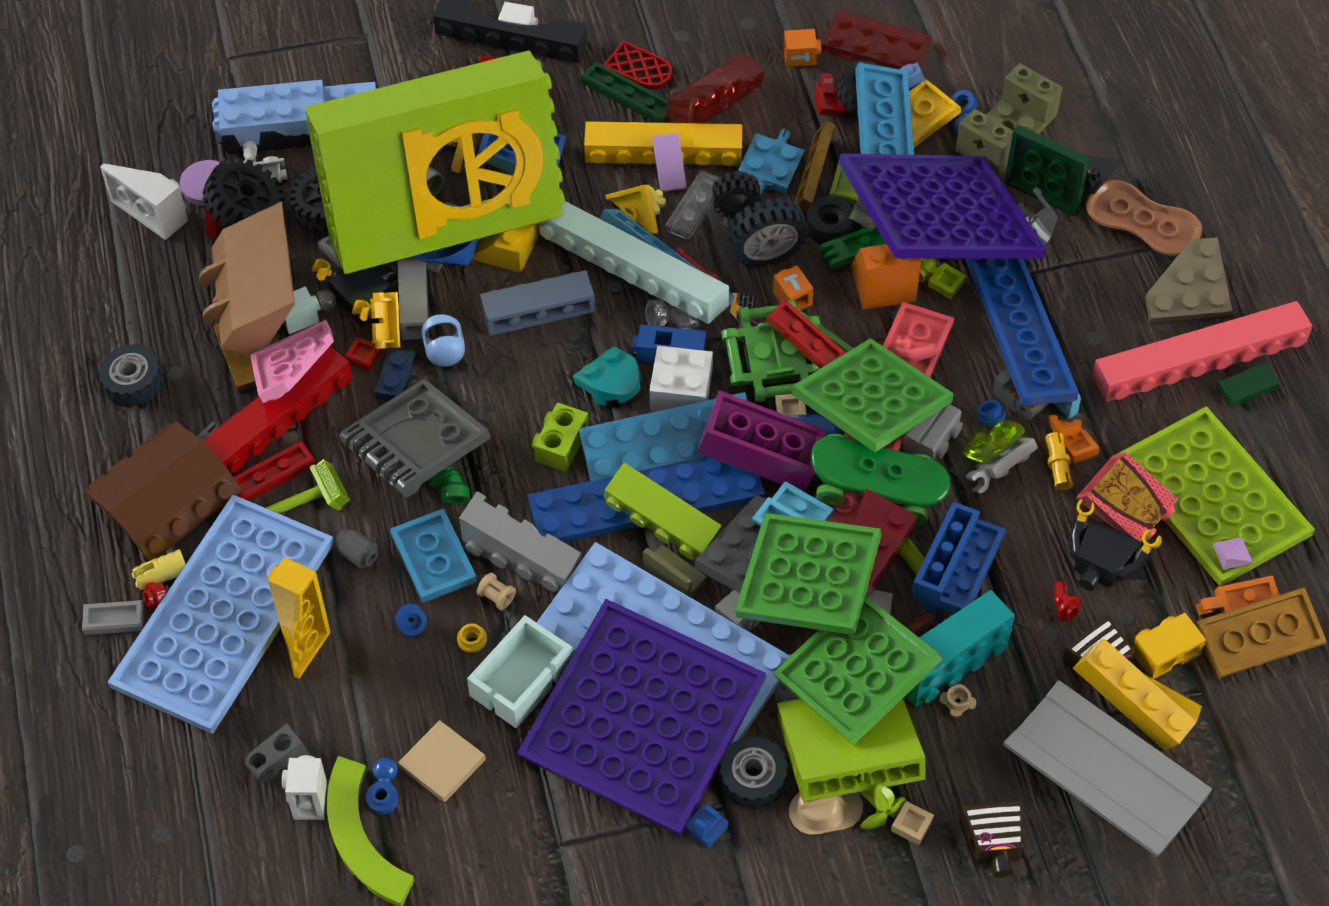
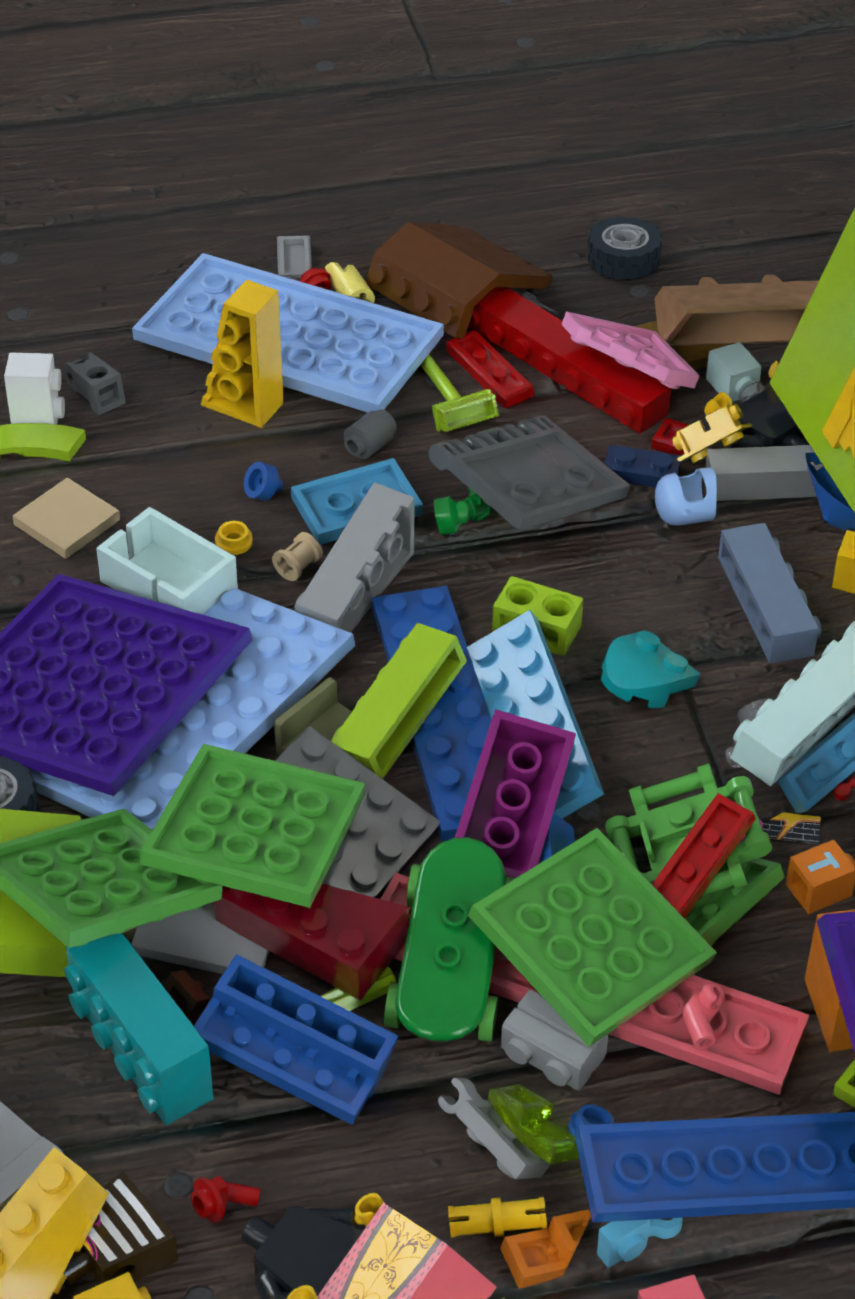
camera: 90 degrees right, 10 degrees down
(384, 771) = (28, 468): blue plate -> none
(652, 336) = (699, 727): blue brick -> none
(680, 377) = (635, 737): white brick -> none
(794, 503) = (385, 845): medium azure slope -> none
(958, 692) = (70, 1034): tan plate -> none

